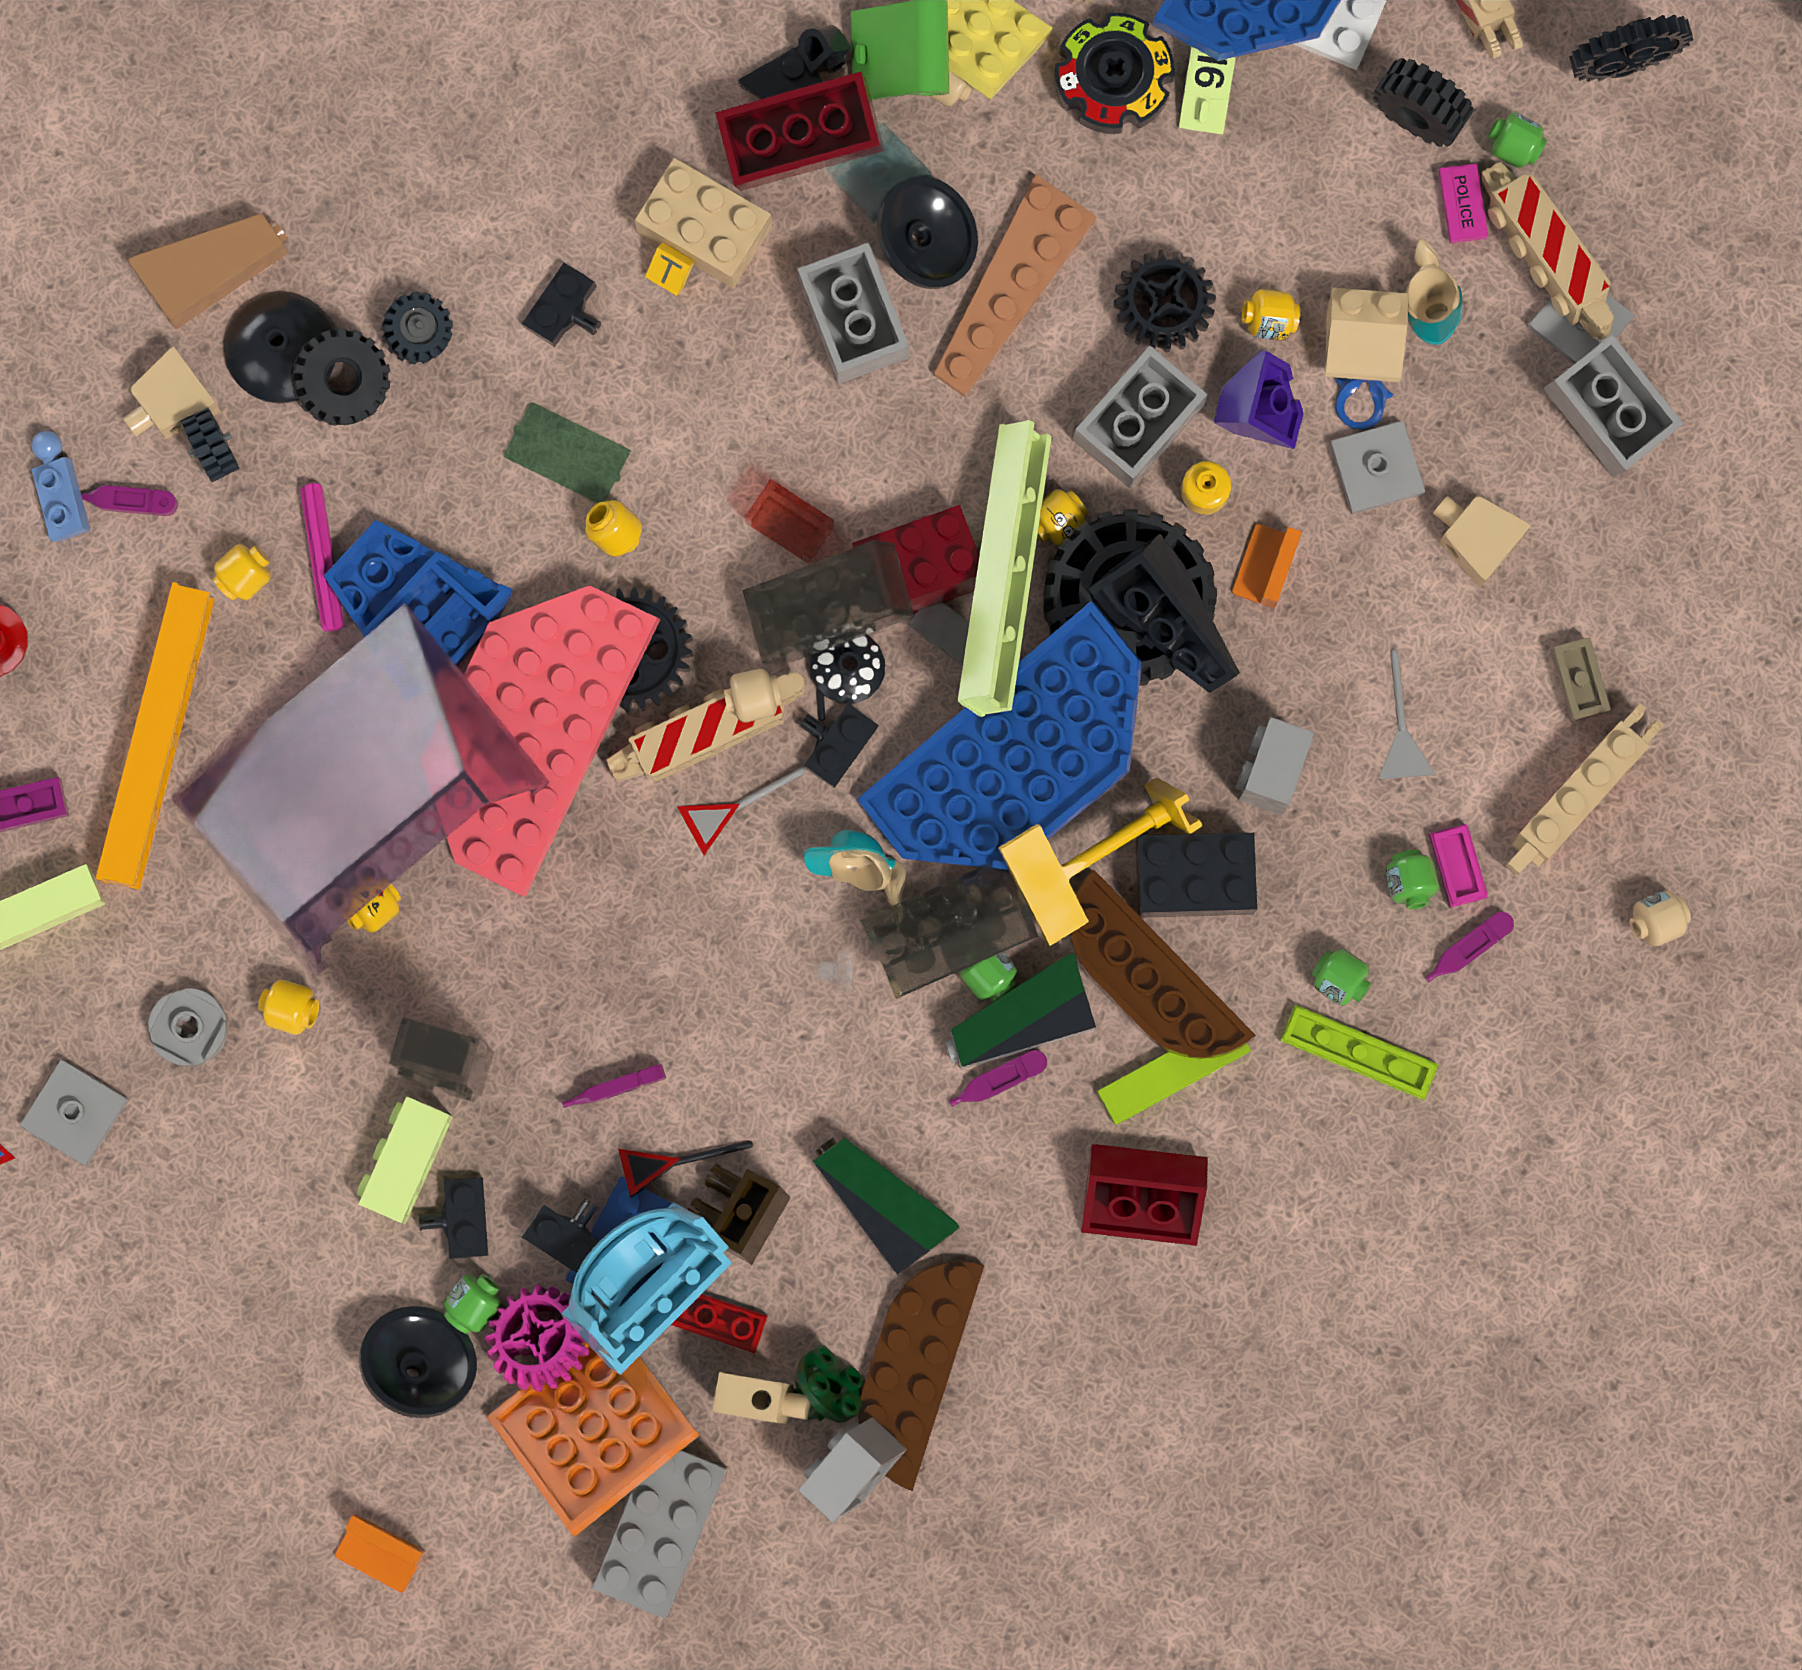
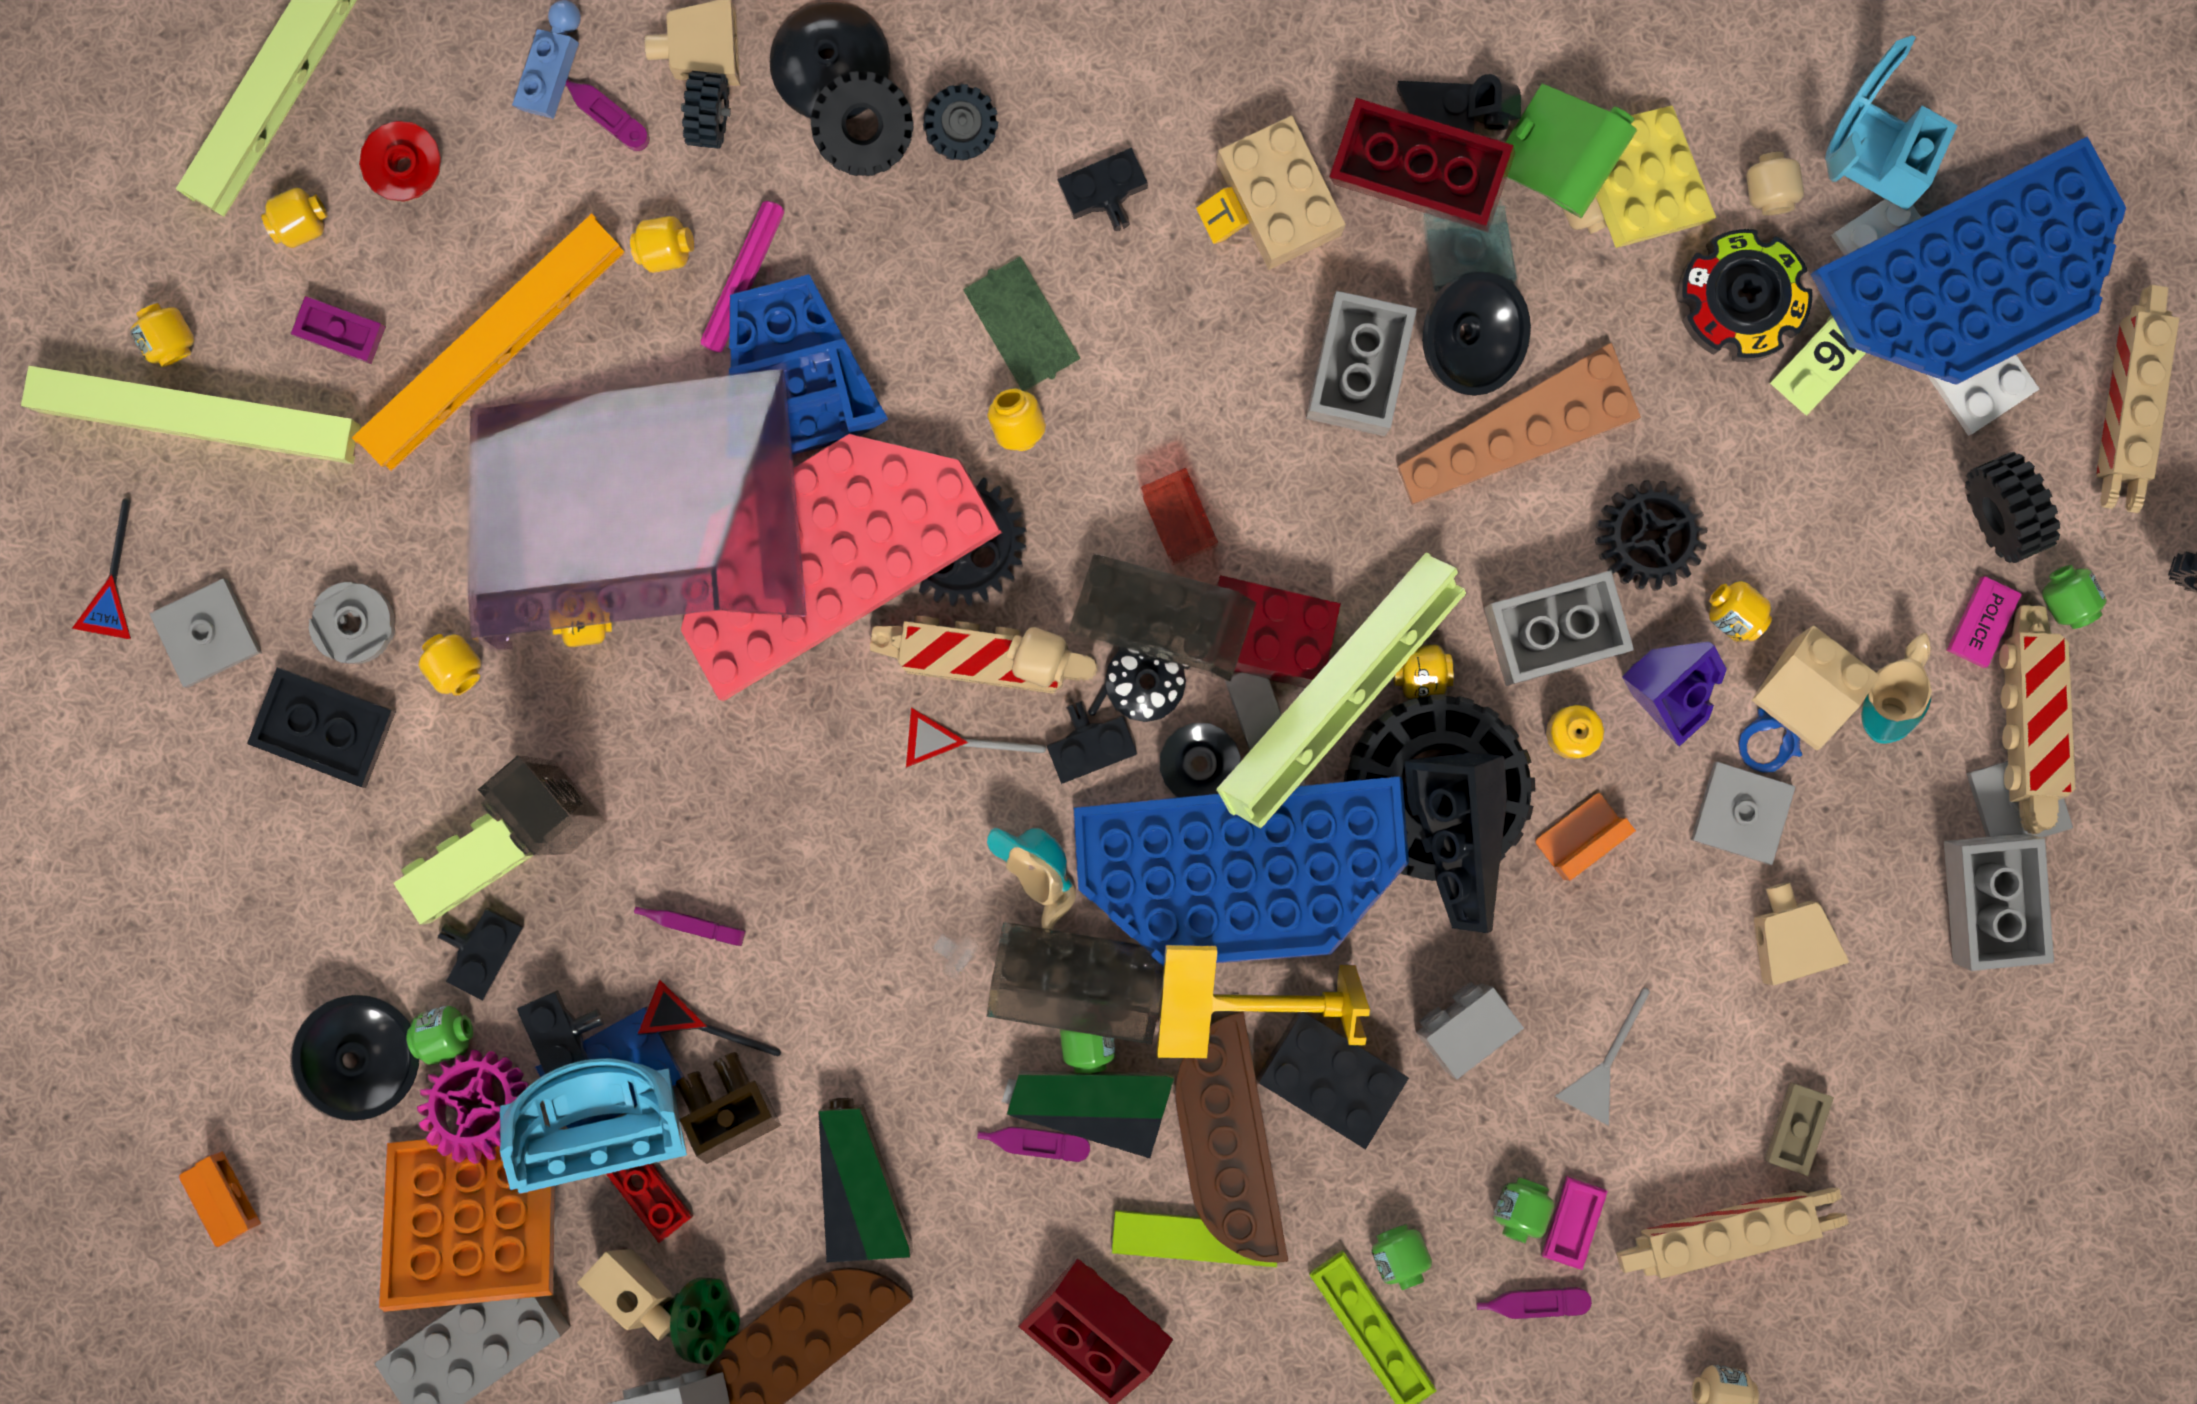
camera: 35 degrees right, 5 degrees up
(217, 1125) = (321, 727): none -> black plate
(916, 686) = (1194, 741): none -> black dish

